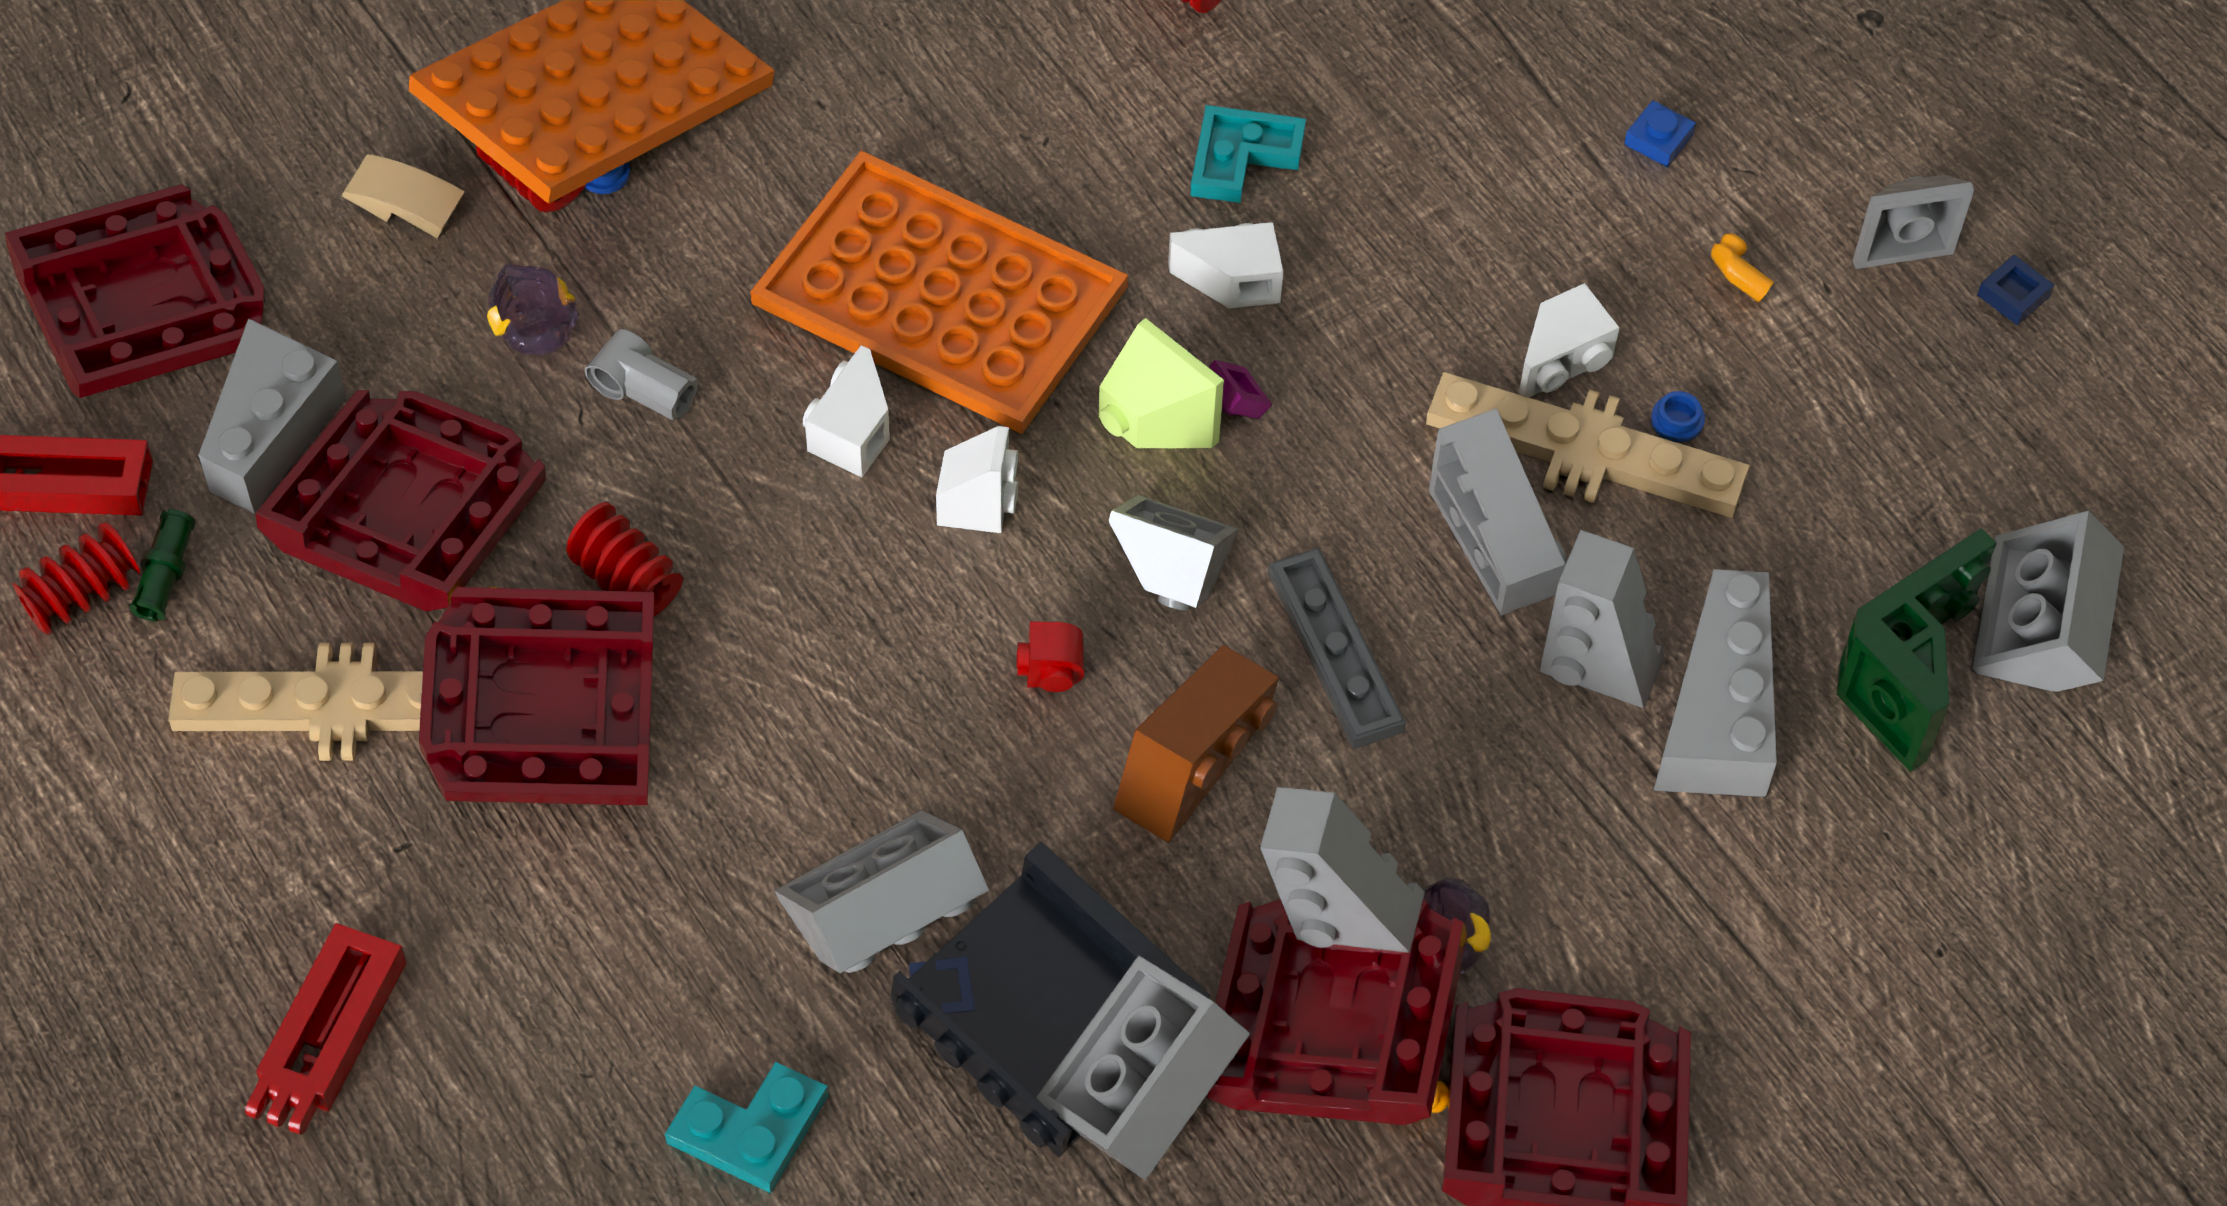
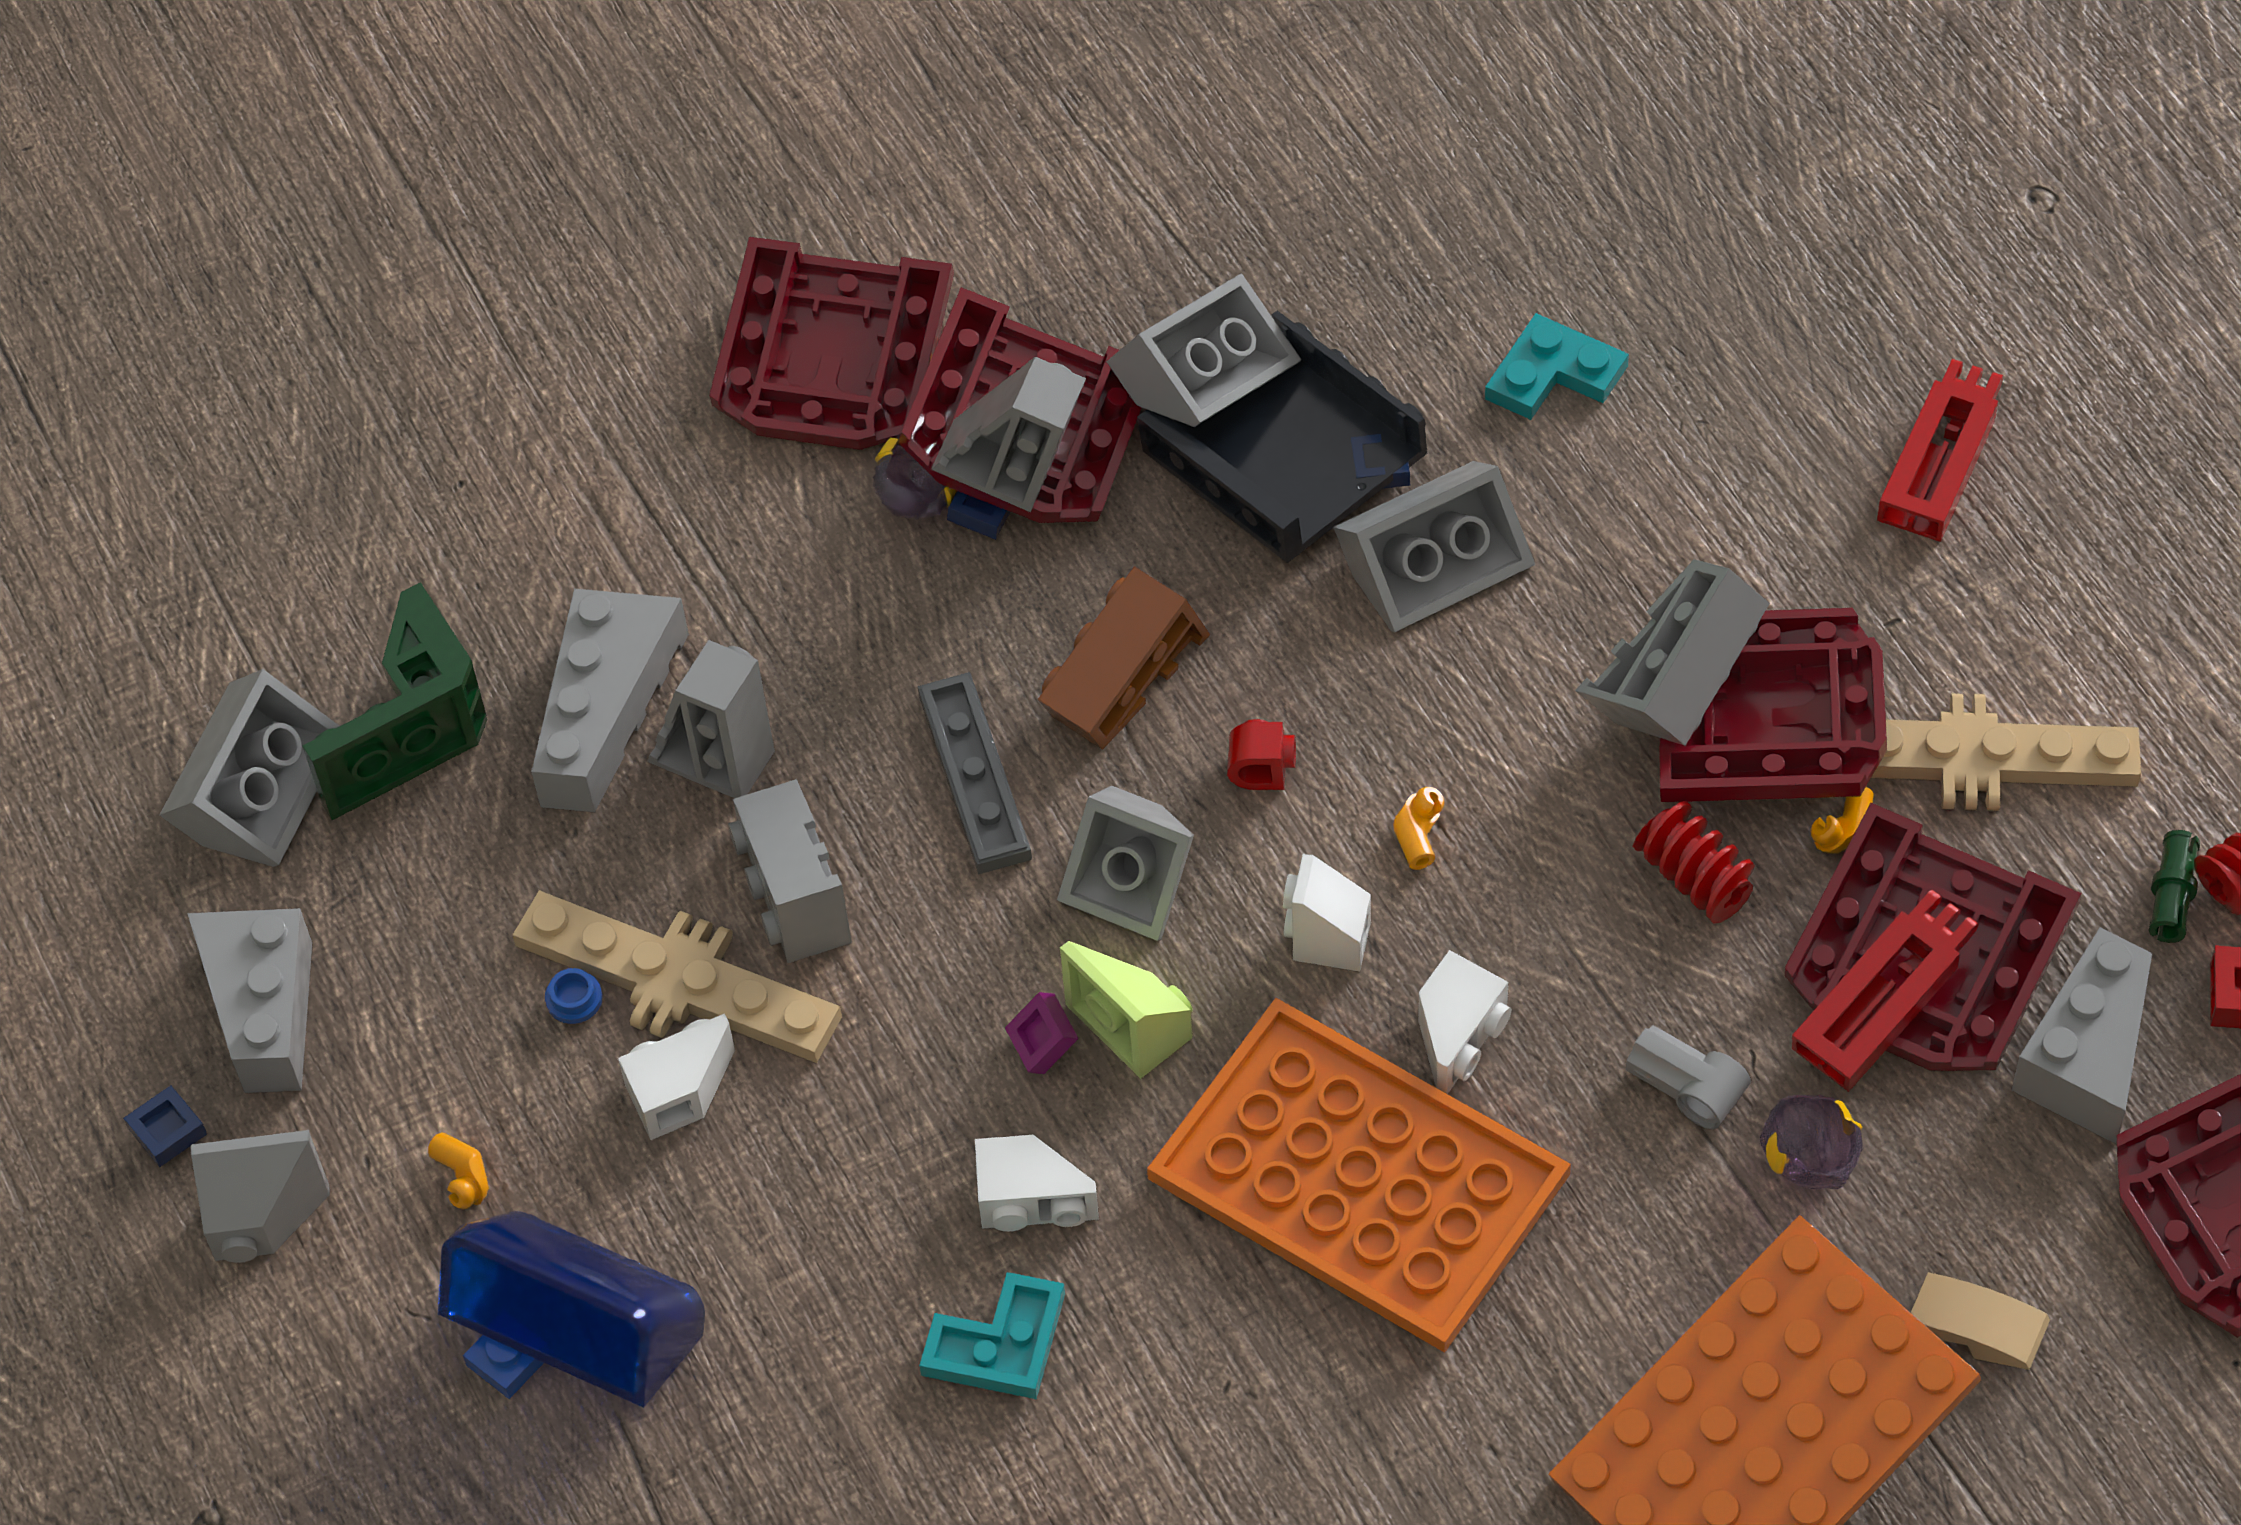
camera: 170 degrees left, 0 degrees up
(463, 420) = (1869, 1012): none -> red hinge
(632, 691) = (1681, 655): none -> light grey wedge
(899, 601) = (1415, 823): none -> light orange arm
(1612, 134) = (569, 1303): none -> clear blue windscreen
(1973, 395) = (260, 990): none -> light grey wedge

